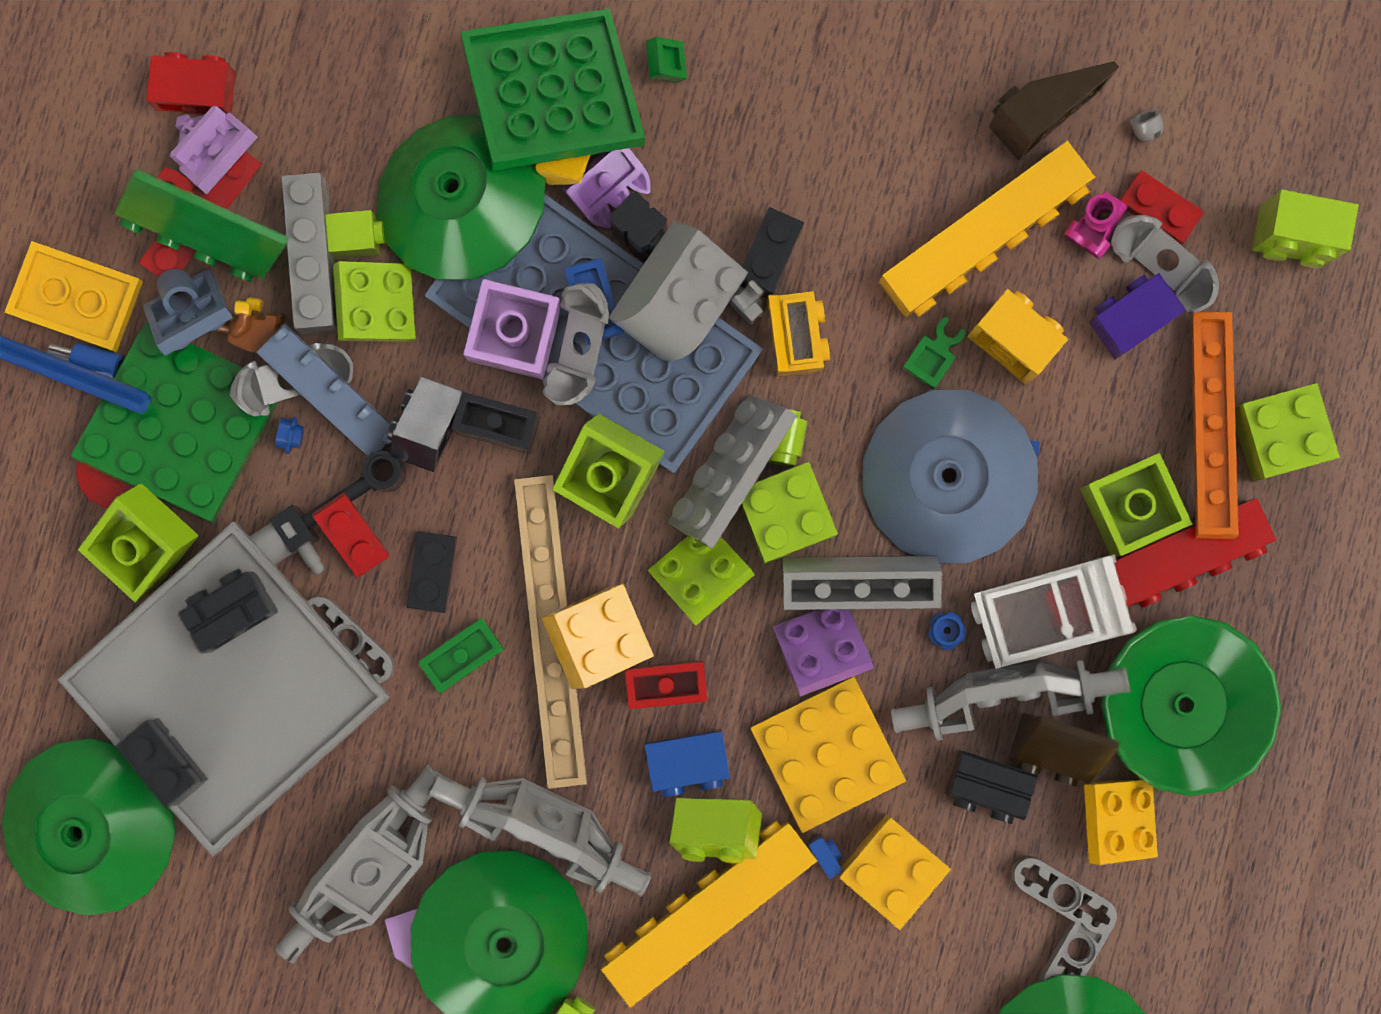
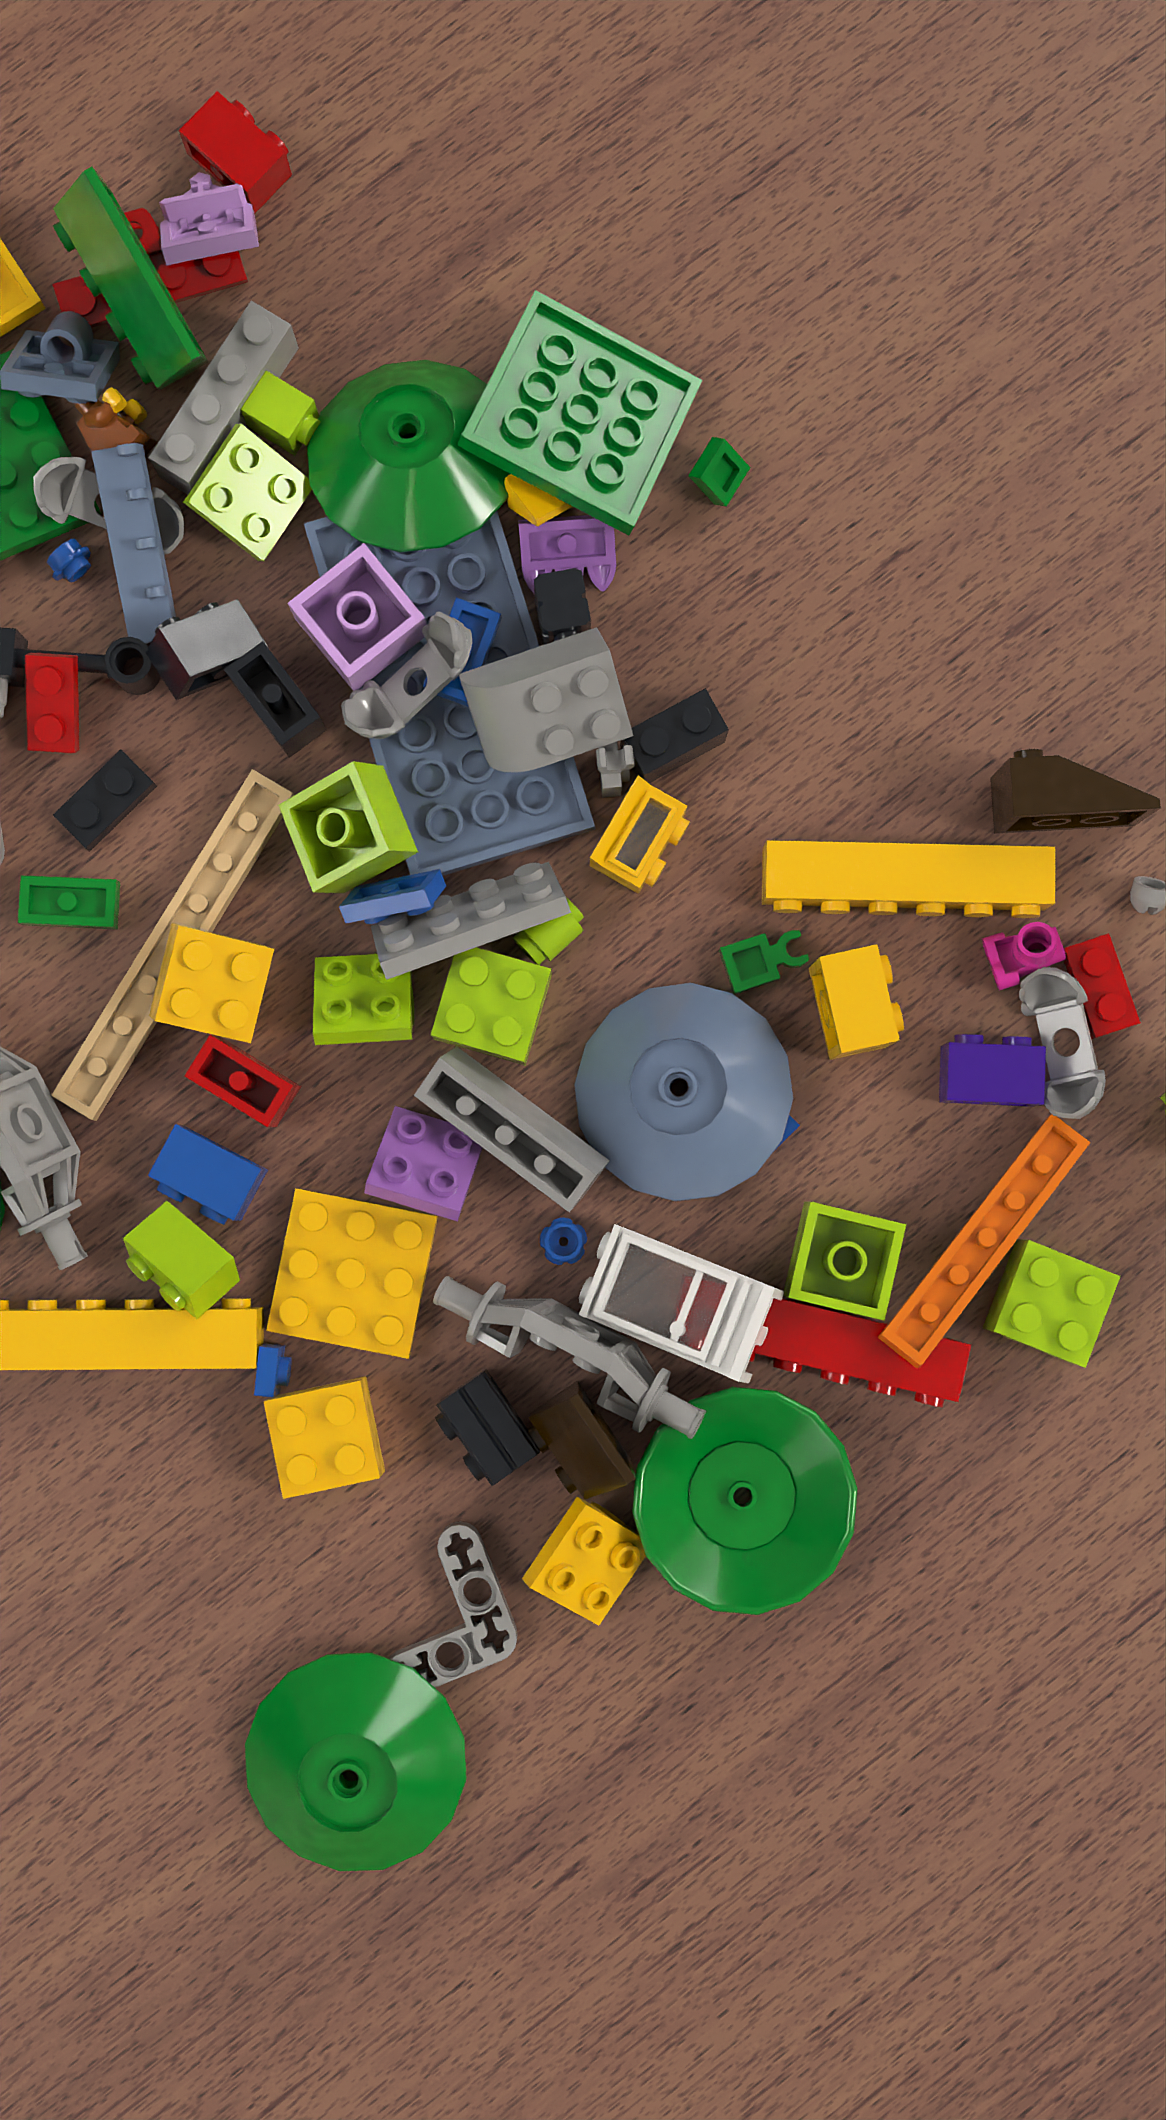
camera: 35 degrees right, 0 degrees up
(670, 492) = (380, 899): none -> blue plate

